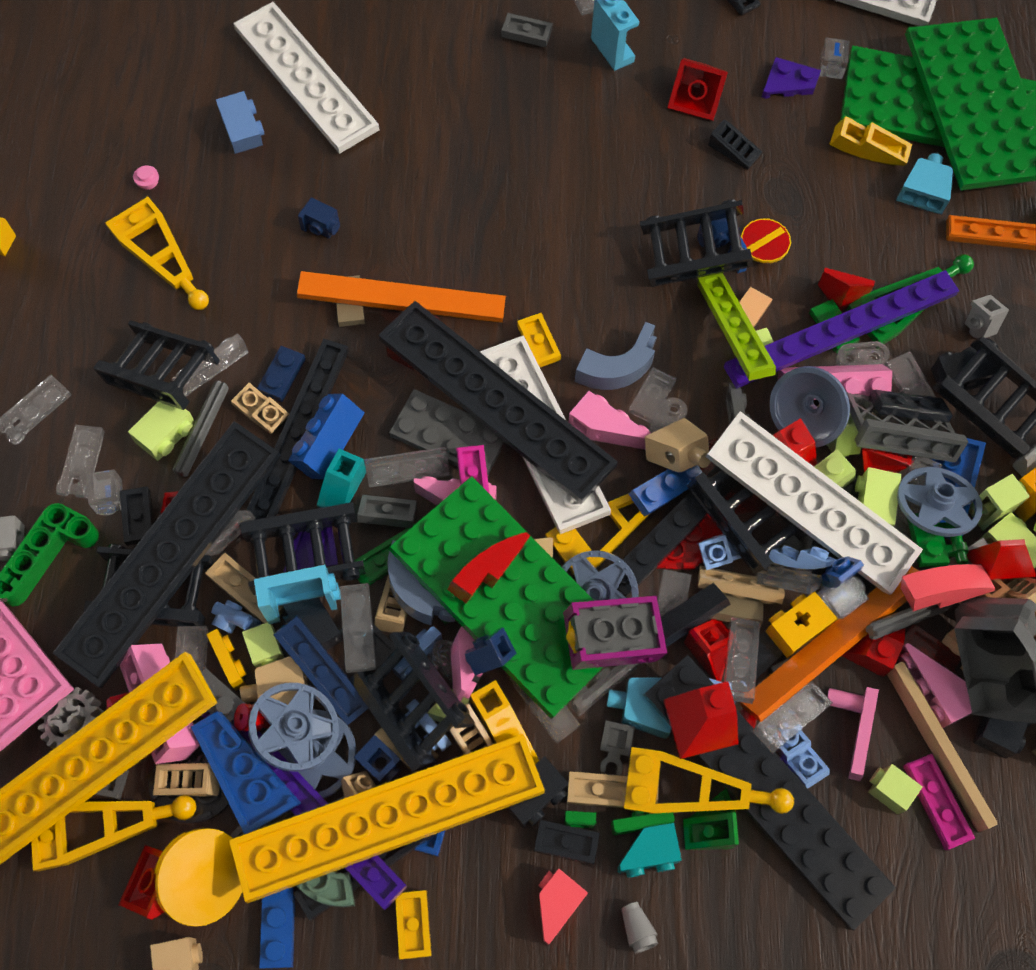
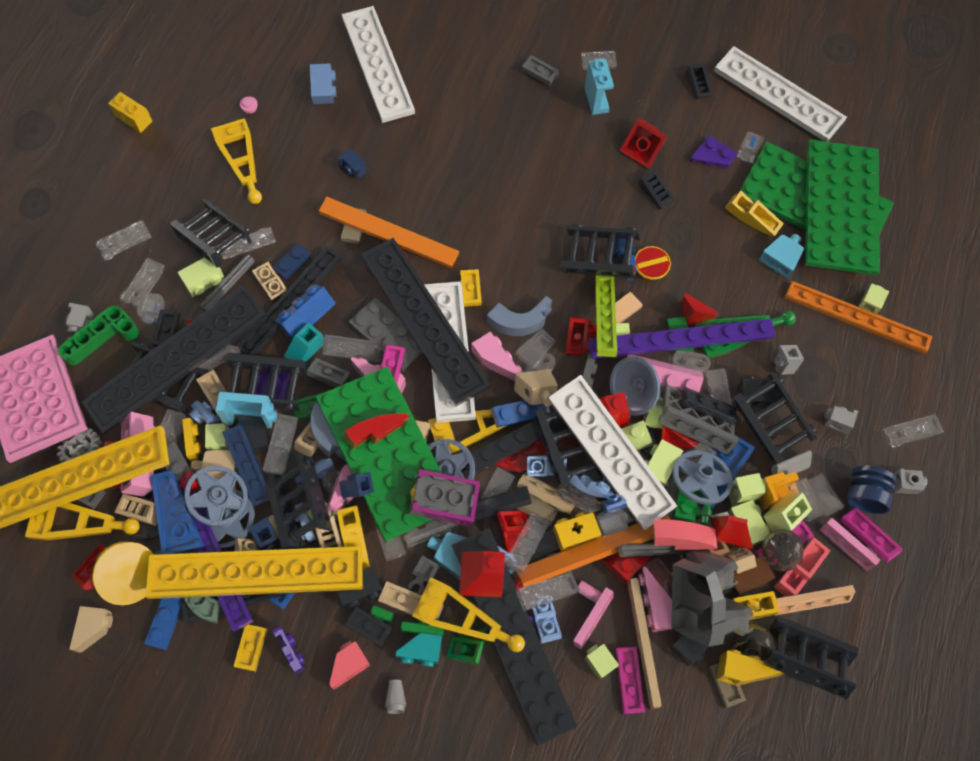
camera: 15 degrees right, 0 degrees up
(463, 901) = (287, 642): none -> dark purple wing
(706, 362) = (578, 335): none -> red slope

